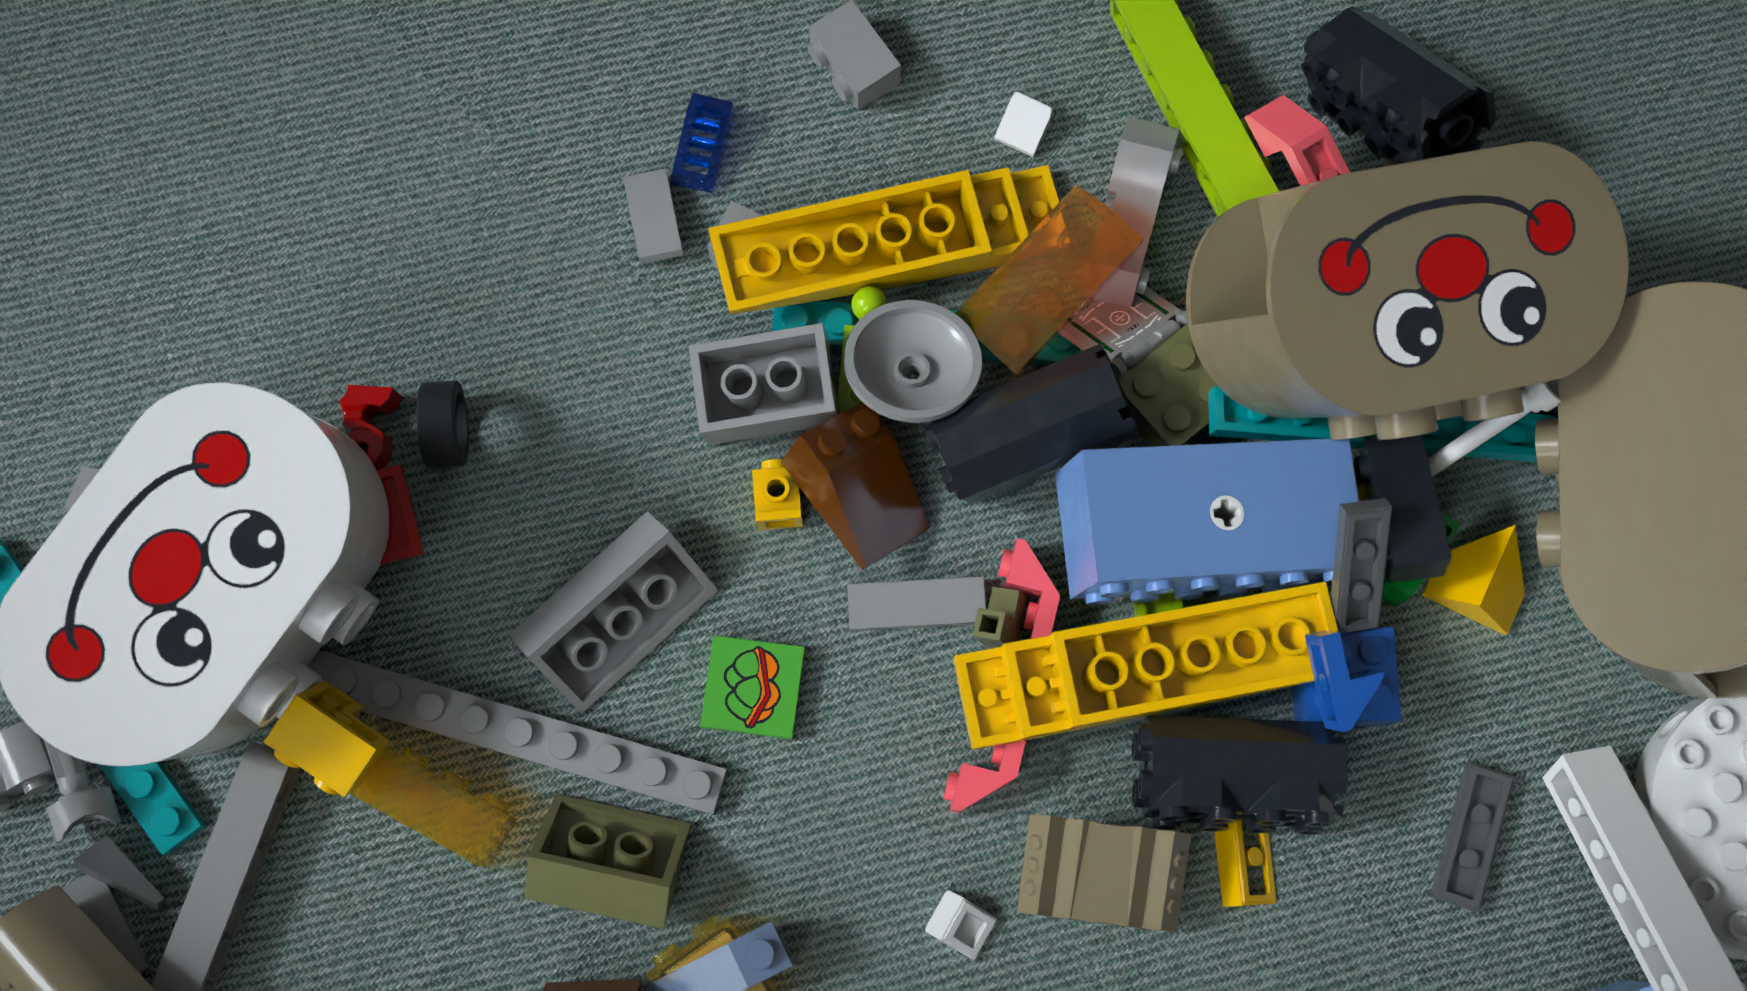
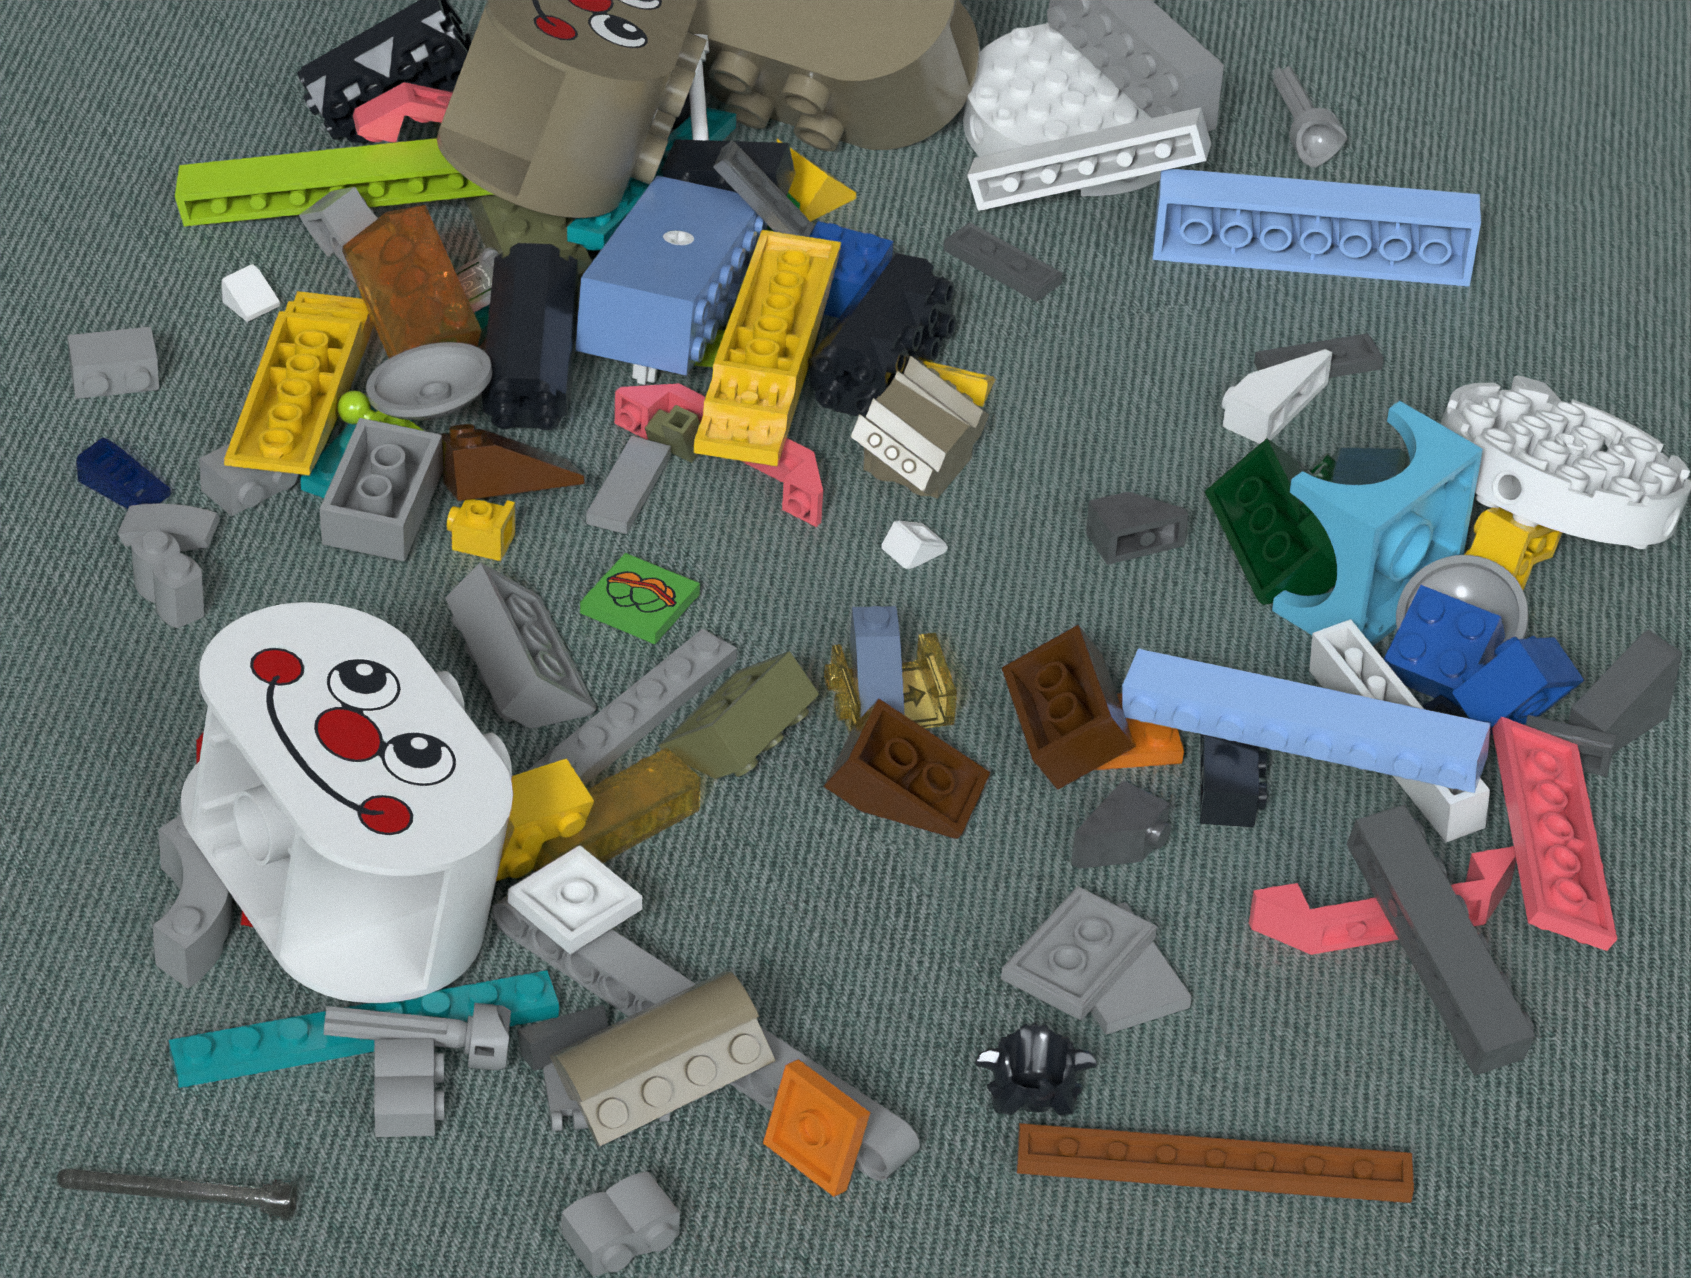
camera: 70 degrees left, 35 degrees down
(249, 825) = (575, 899): none -> white plate
(577, 243) = (167, 578): none -> light grey brick
(1339, 692) = (850, 239): blue slope -> none

